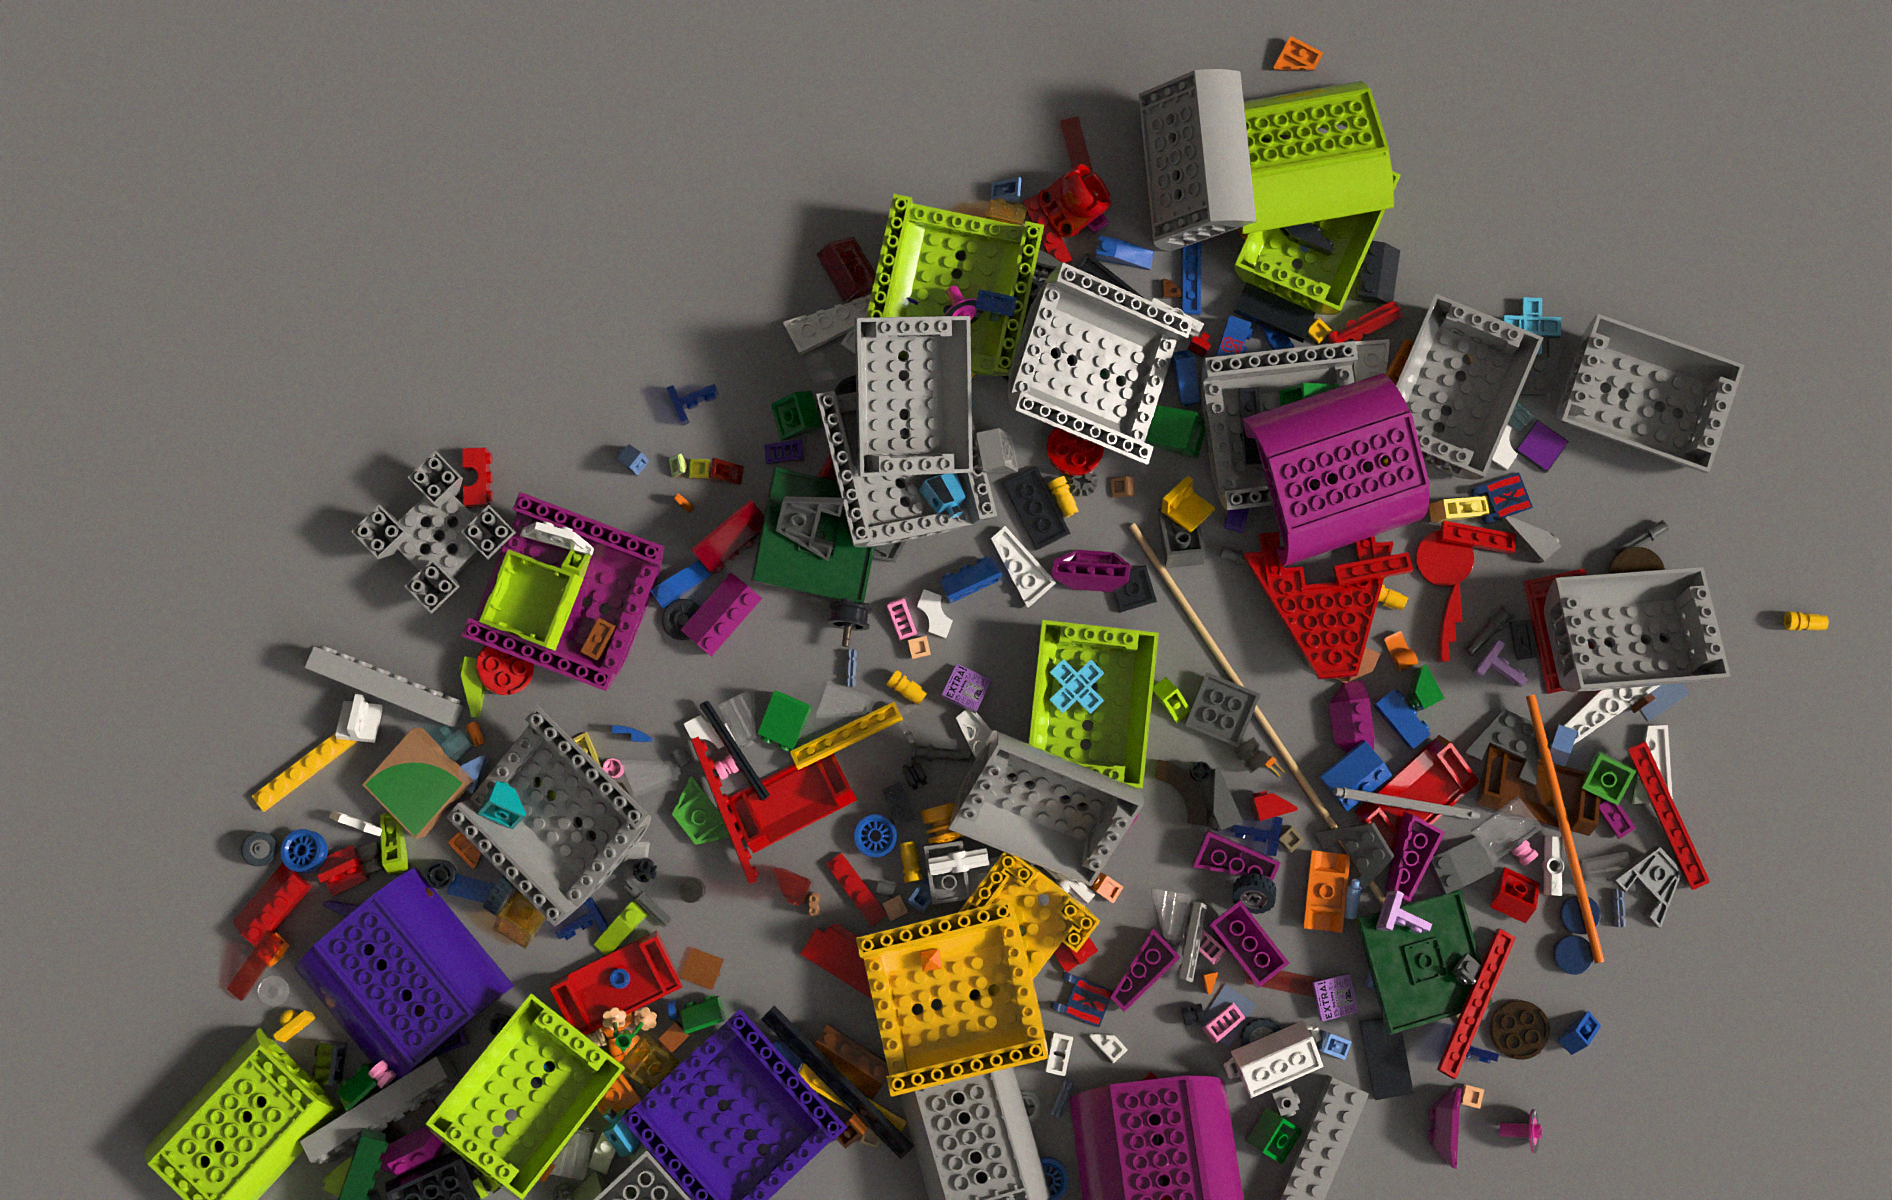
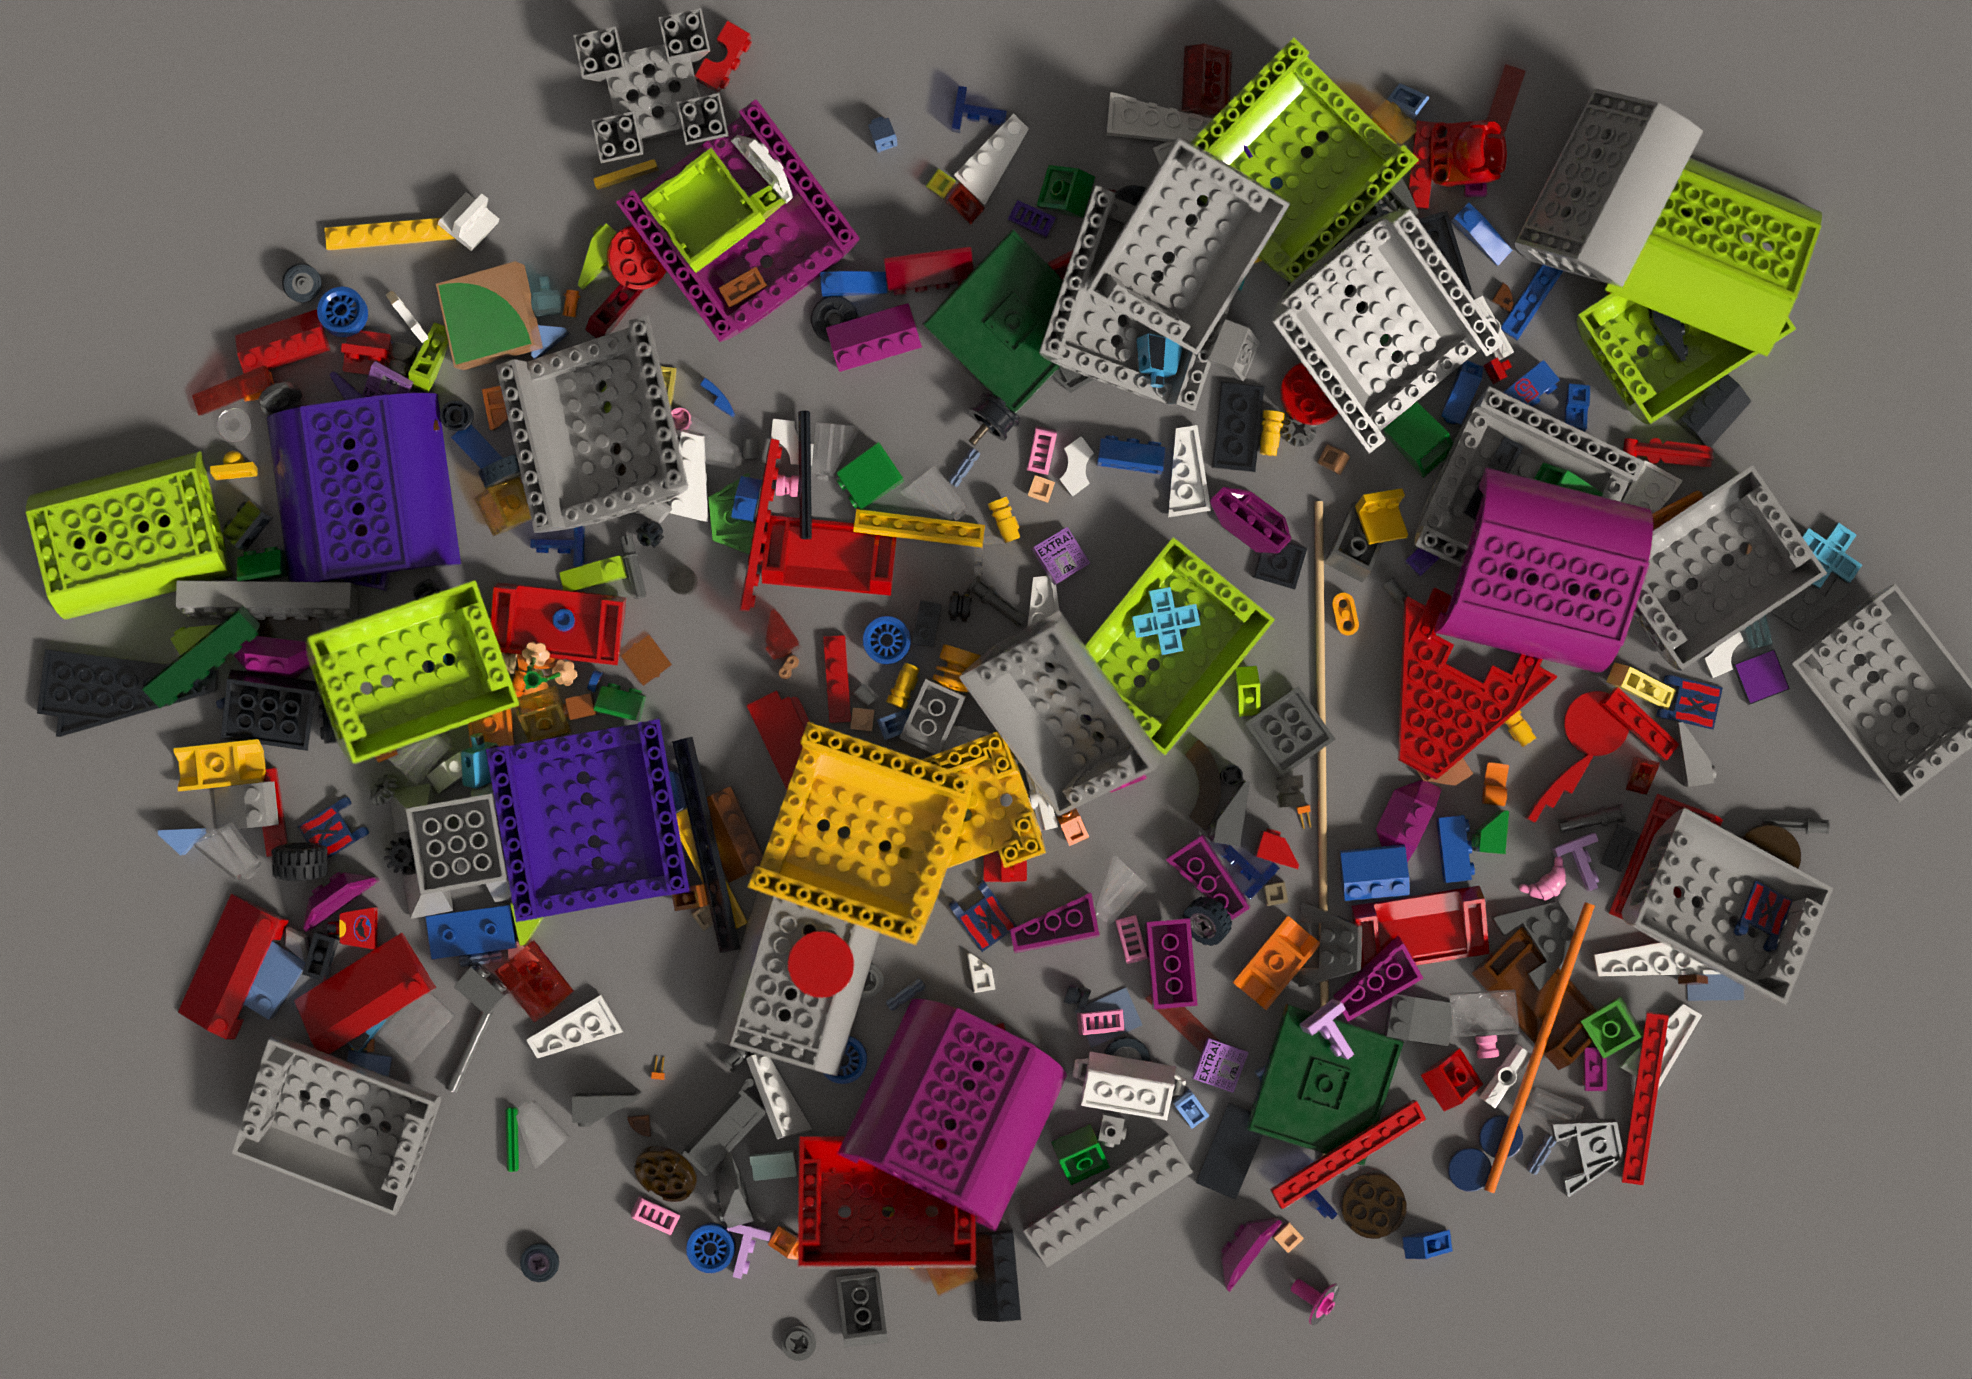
camera: 30 degrees right, 5 degrees up
(295, 947) = (280, 398): none -> dark grey tile
(368, 883) = (385, 381): none -> medium lavender tile
(382, 1074) = (290, 567): bright pink wheel -> none
(389, 688) = (511, 200): light grey brick -> none
(457, 610) = (625, 174): none -> yellow tile
(481, 1190) = (315, 730): lime tile -> none
(502, 805) = (555, 388): teal slope -> none
(510, 719) = (612, 311): none -> dark red slope
(662, 822) = (694, 501): none -> white wing
(677, 465) = (922, 167): yellowish green slope -> none
(684, 503) = (905, 208): orange tile -> none
(701, 797) = (746, 499): none -> blue slope
(725, 432) = (989, 163): none -> white wing
(800, 521) = (1005, 296): dark grey wing -> none
(930, 960) = (864, 788): orange slope -> none
(958, 861) = (949, 713): white piece -> none
(960, 306) = (1294, 194): dark pink piece -> none
(984, 1119) = (821, 964): none -> red tile
(995, 304) = (1322, 207): clear blue bracket -> none
(1059, 1053) = (929, 950): white brick -> none
(1191, 949) = (1126, 922): light grey plate -> none
(1207, 594) = (1345, 614): none -> light orange plate
(1209, 981) = (1112, 974): orange slope -> none
(1274, 312) = (1589, 384): black tile -> none
(1297, 57) = (1778, 148): orange wing -> none
(1318, 331) = (1620, 428): yellow tile -> none
(1352, 899) = (1296, 986): light blue cylinder -> none
(1373, 569) = (1519, 689): red plate -> none
(1406, 803) = (1405, 929): light grey piece -> none
(1466, 970) = (1359, 1118): dark grey bracket -> none
(1489, 700) = (1549, 884): none -> bright pink piece
(1503, 574) = (1641, 775): none -> clear red slope
(1562, 744) = (1589, 969): medium blue slope -> none
(1664, 616) = (1766, 912): none -> dark blue flag
(1799, 621) = (1893, 998): yellow axle -> none

